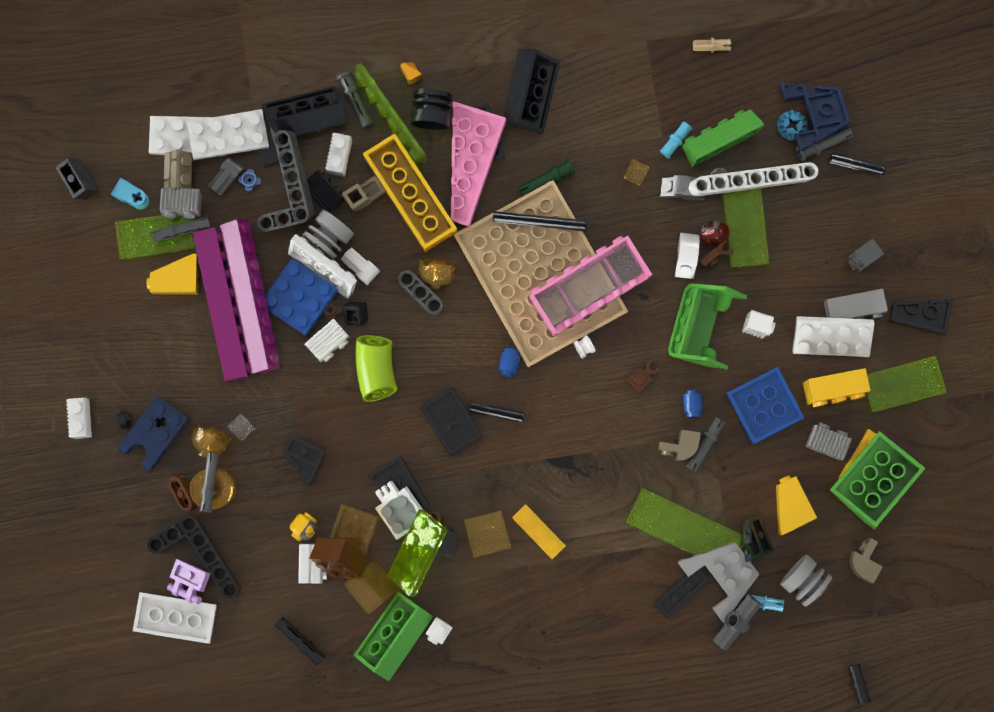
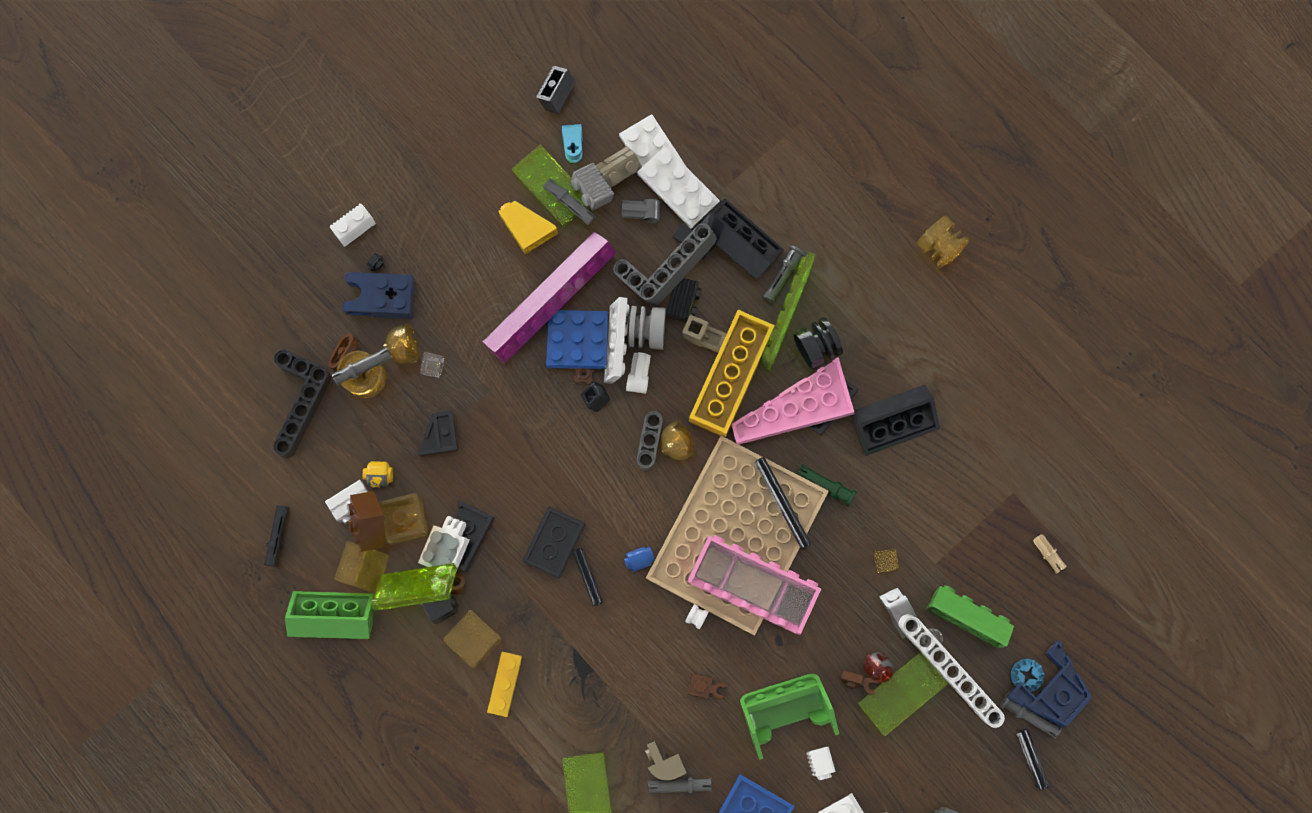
camera: 65 degrees right, 5 degrees down
(174, 618) = (231, 416): white plate -> none
(191, 576) = (274, 406): lavender plate -> none
(221, 304) = (527, 278): magenta brick -> none
(249, 175) = (649, 226): medium blue plate -> none
(327, 341) = (554, 388): white brick -> none
(338, 154) = (724, 291): white brick -> none
(375, 367) = (556, 443): lime brick -> none
(411, 72) = (840, 305): light orange slope -> none
(438, 631) = (359, 652): white brick -> none
(676, 139) = (940, 577): medium azure pin -> none
(687, 255) = (841, 656): white brick -> none
(693, 404) = (709, 749): blue brick -> none

